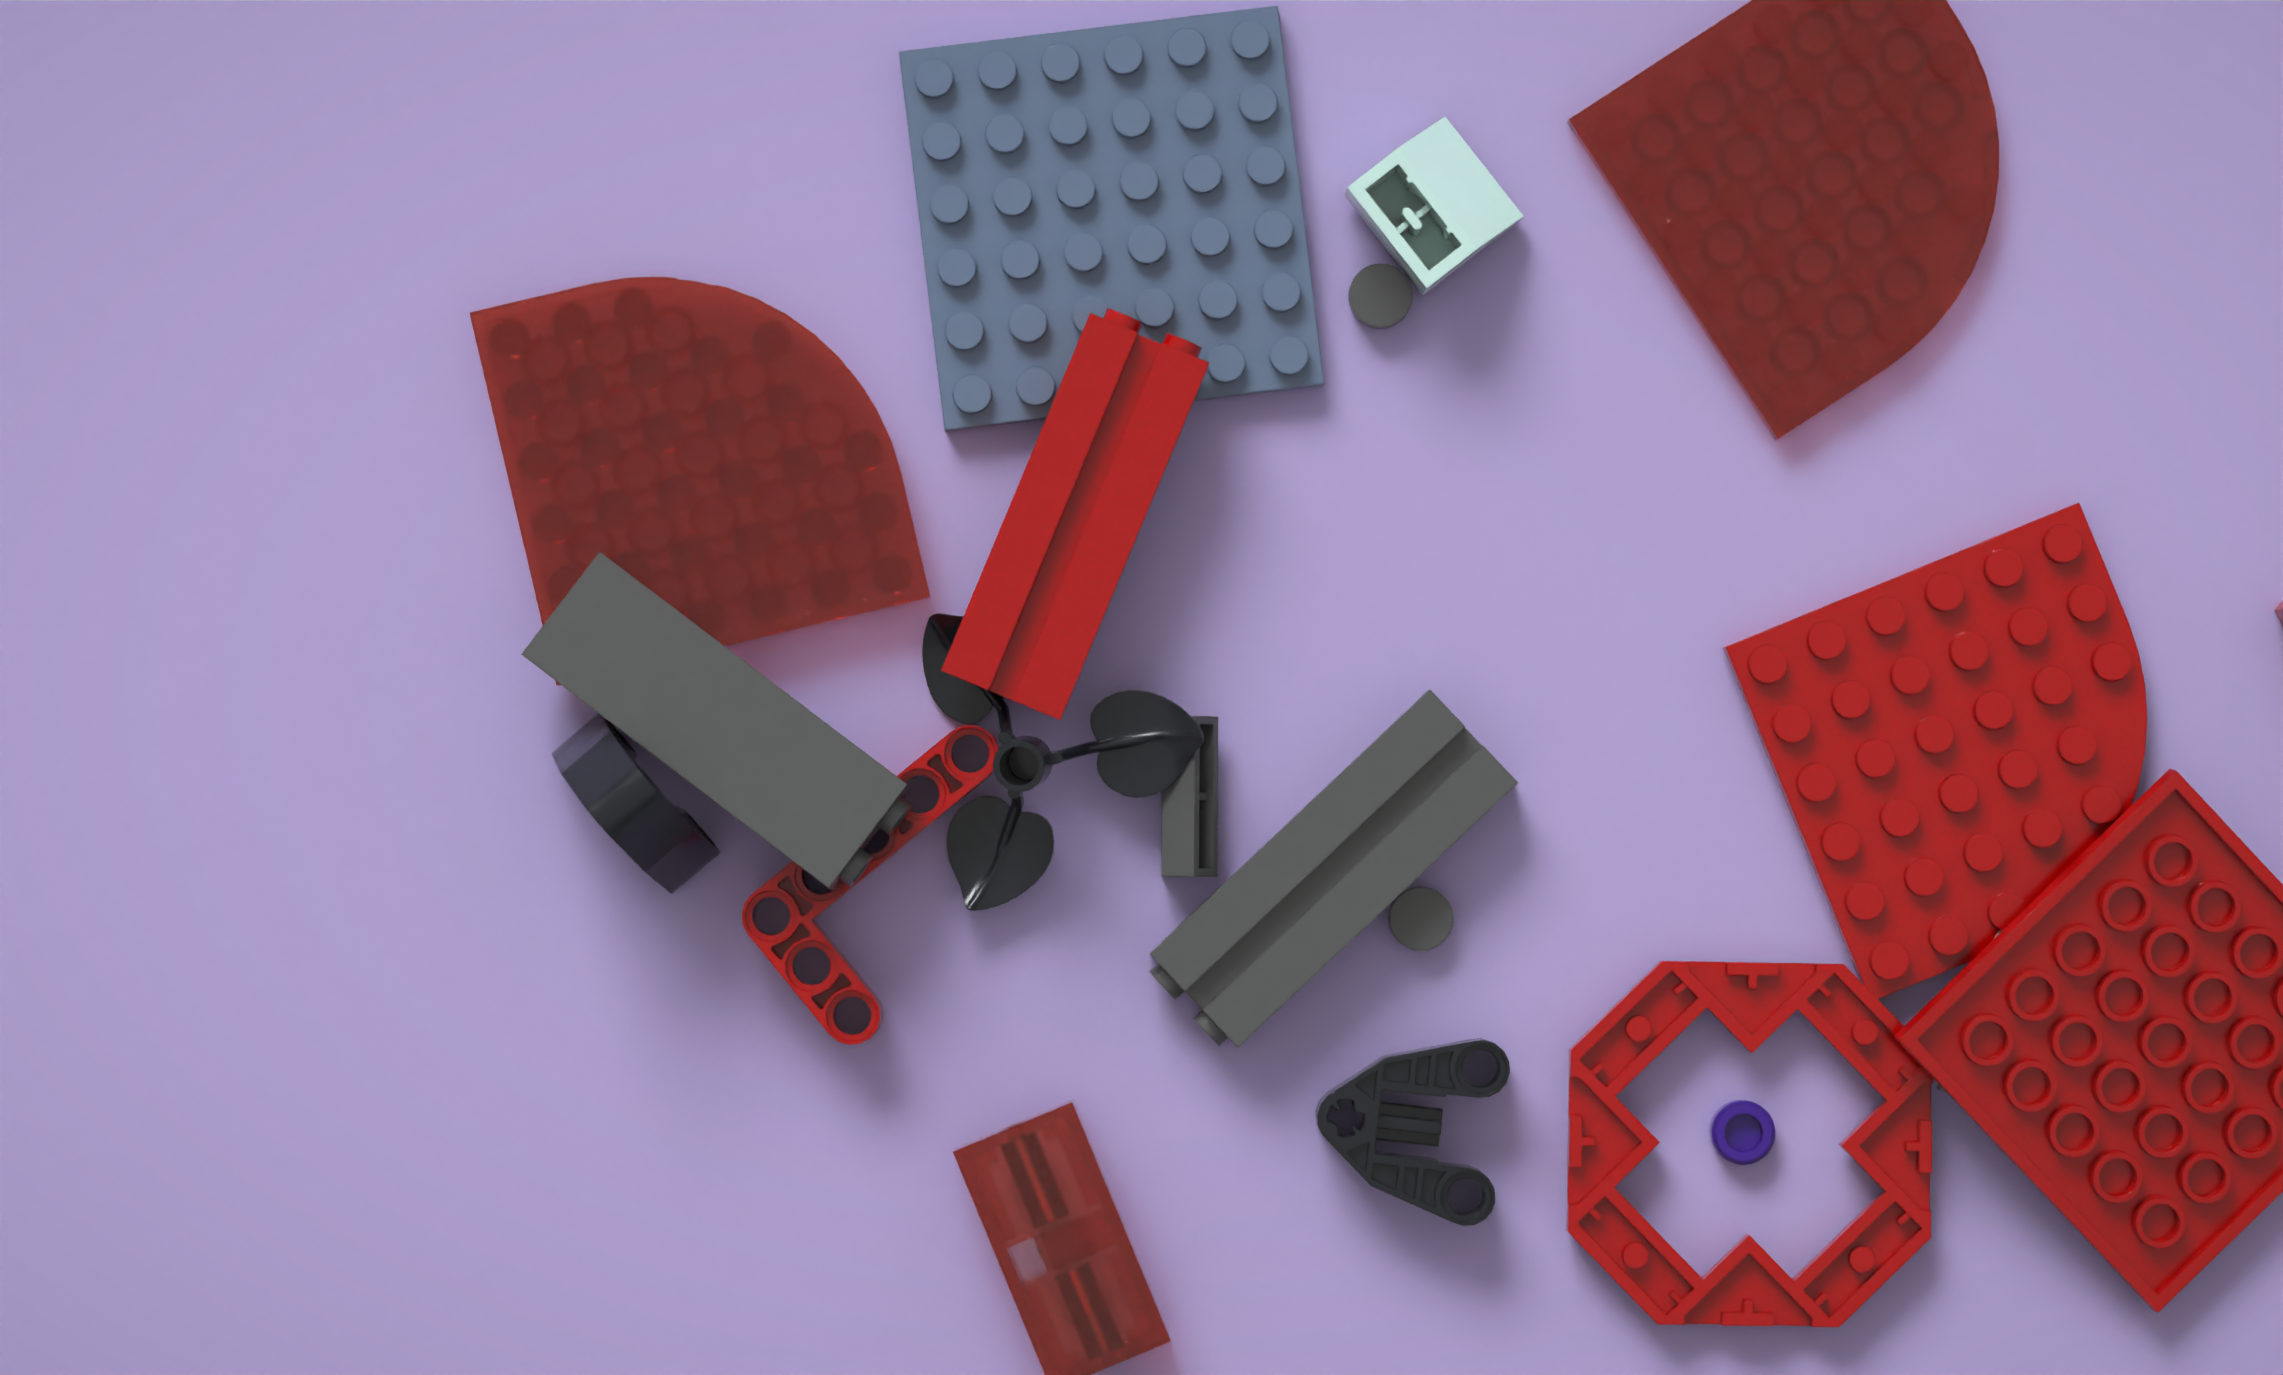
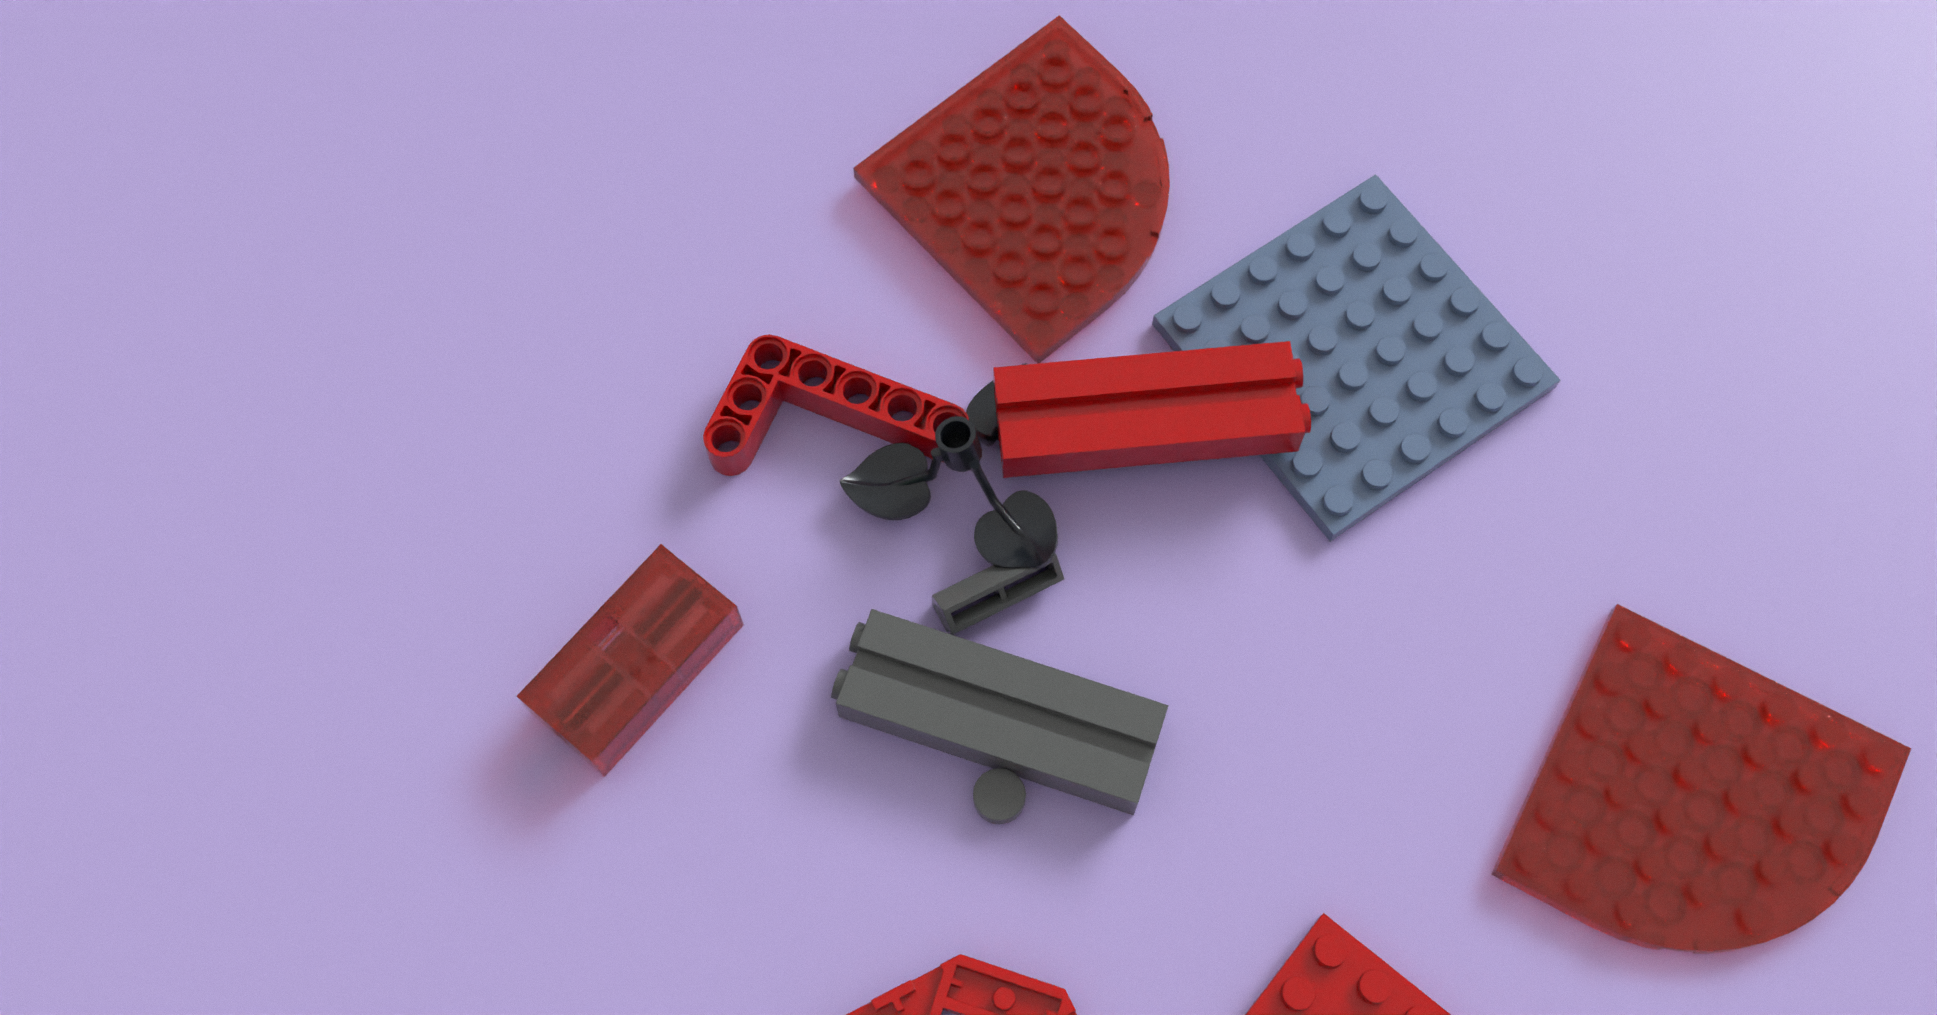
camera: 65 degrees right, 20 degrees down
(630, 805) = (789, 214): black connector -> none
(719, 723) = (879, 259): dark grey brick -> none
(1380, 296) = (1414, 544): dark grey tile -> none
(1409, 1177) = (801, 885): black connector -> none
(1432, 204) = (1500, 538): light aqua slope -> none

